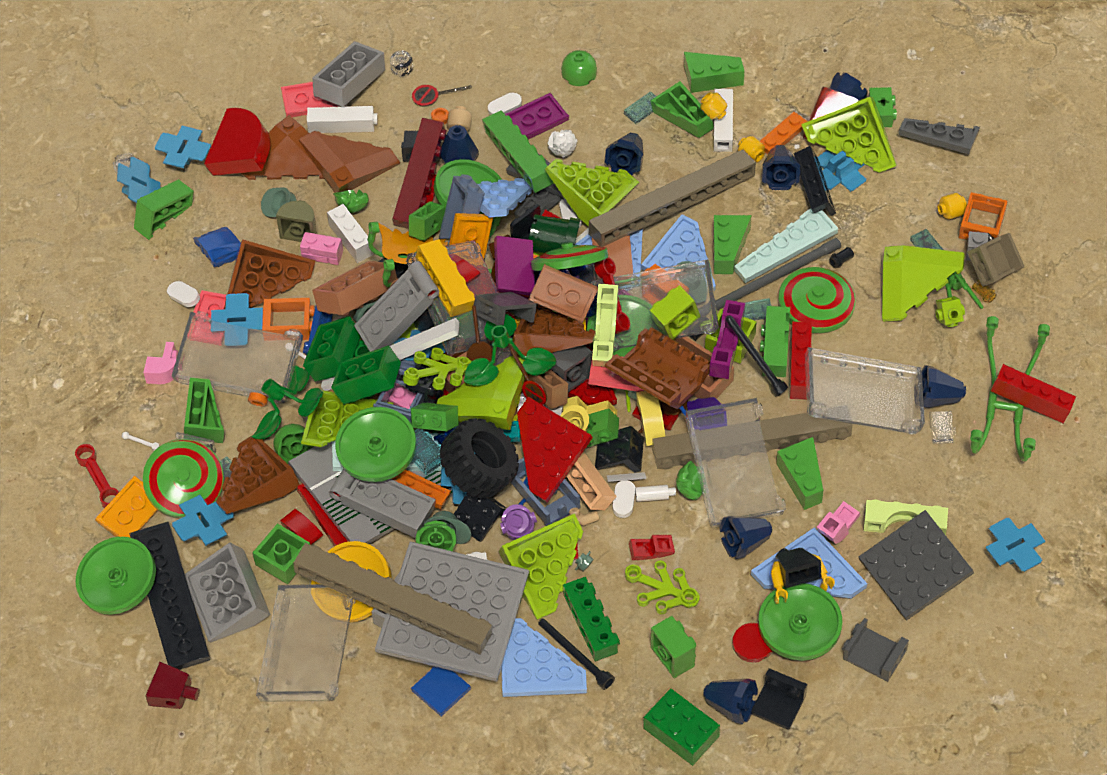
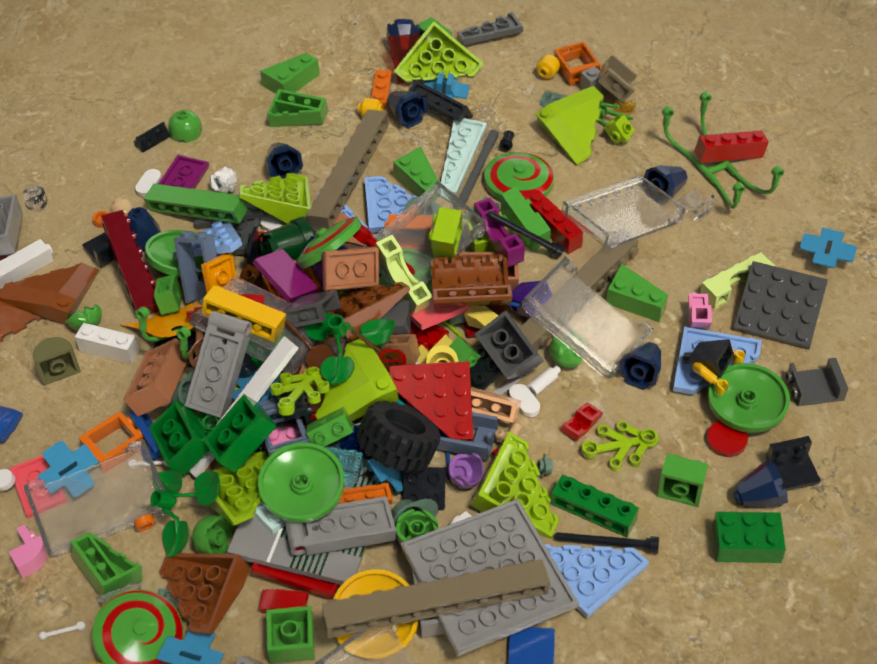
camera: 40 degrees left, 5 degrees down
(266, 272) = (56, 416): dark orange slope -> none
(274, 199) = (17, 357): sand green piece -> none
(321, 248) = (92, 369): bright pink brick -> none
(427, 95) = (77, 211): piece -> none
(543, 62) = (152, 137): none -> black hinge
(640, 108) = (259, 127): clear light blue tile -> none
(642, 445) = (509, 346): none -> dark grey slope
(713, 105) = (321, 89): yellow head -> none
(724, 127) = (338, 107): white brick -> none

